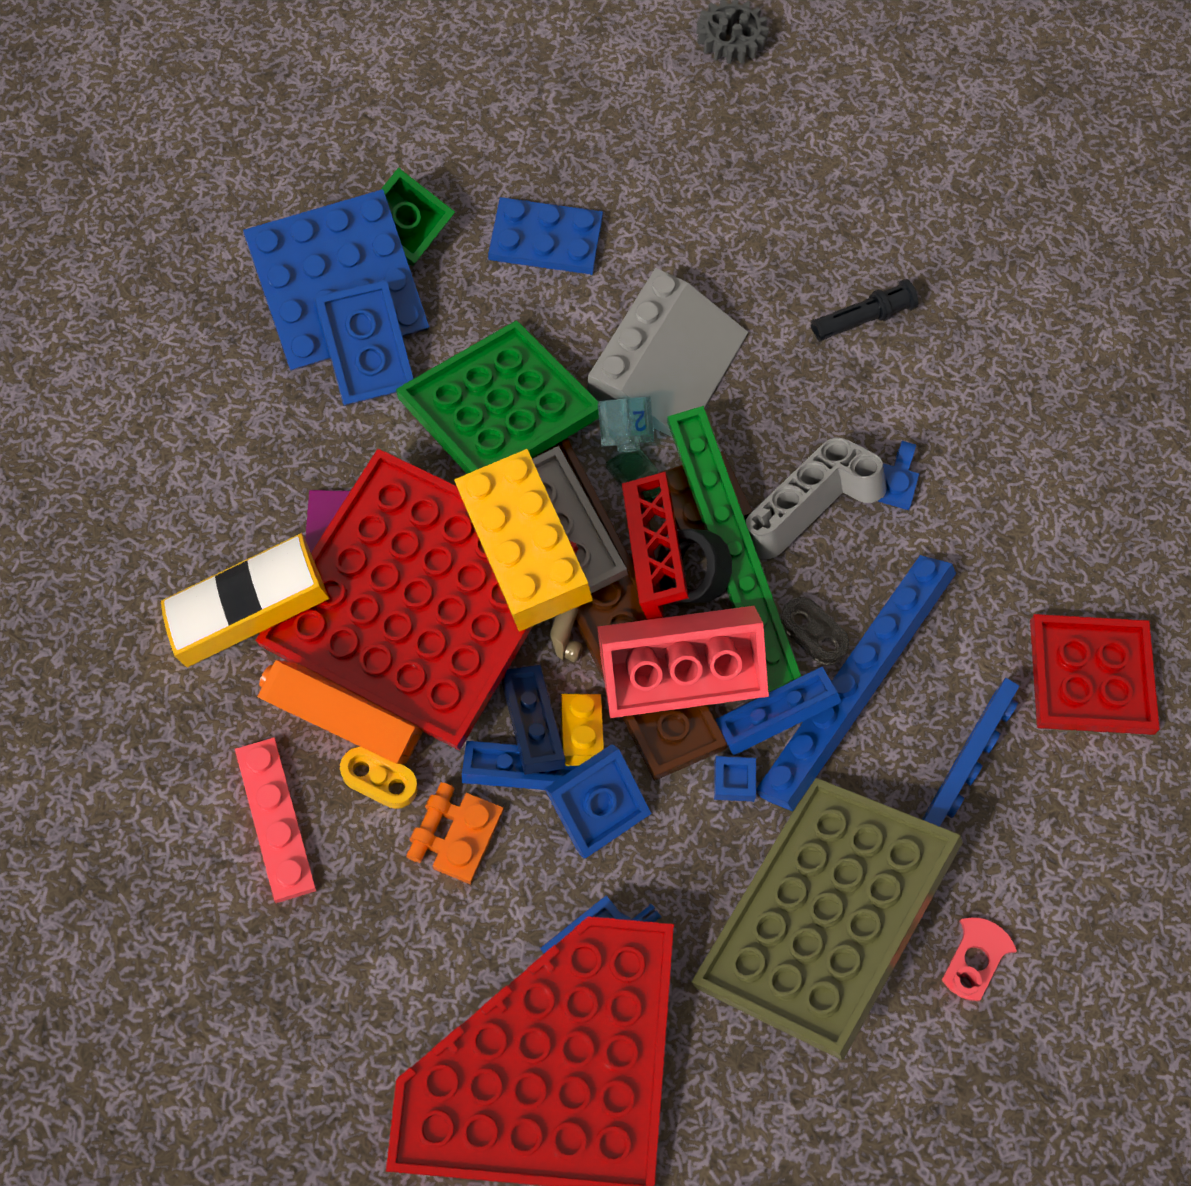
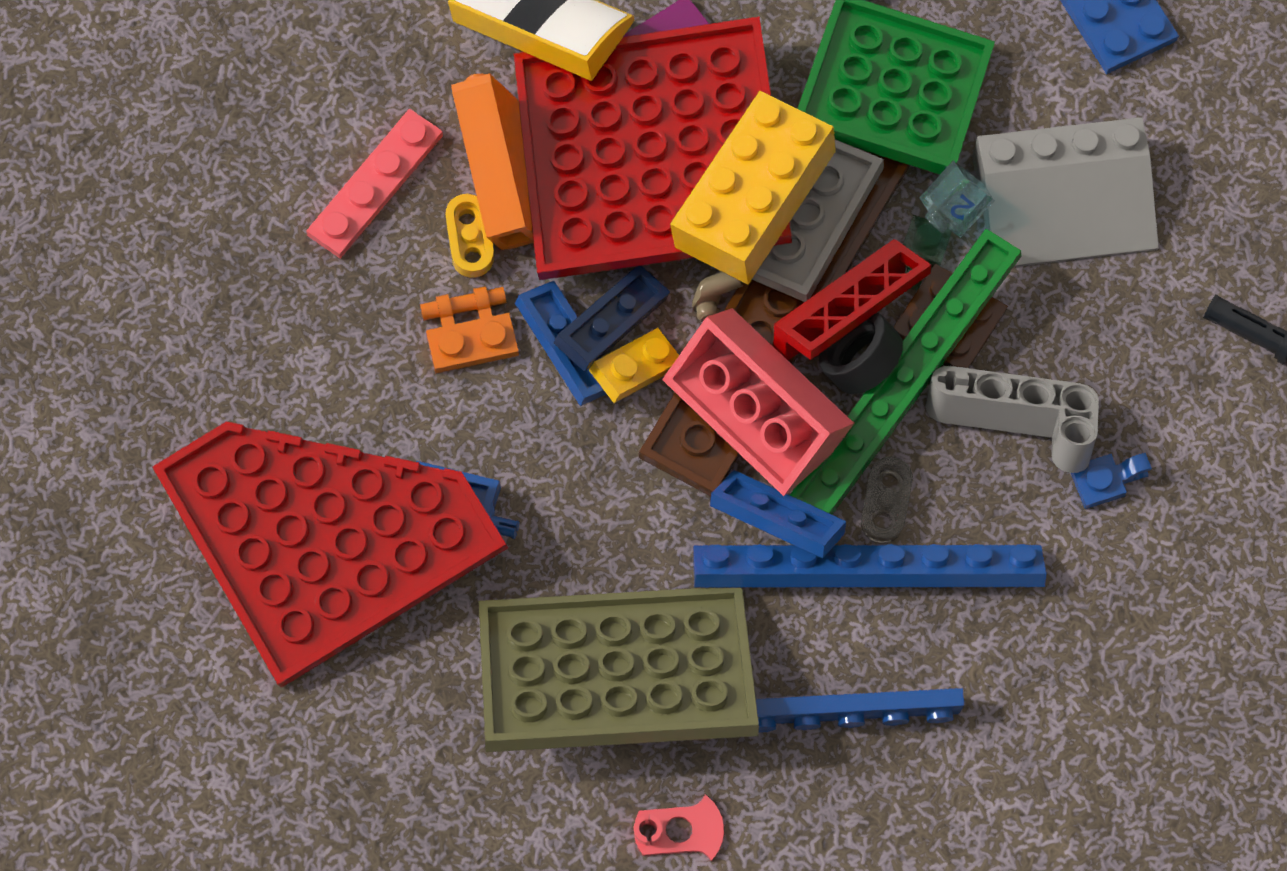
camera: 55 degrees right, 5 degrees up
(598, 801) = (577, 419): blue plate -> none
(734, 778) = (689, 521): blue plate -> none
(1094, 674) = (1039, 772): red plate -> none

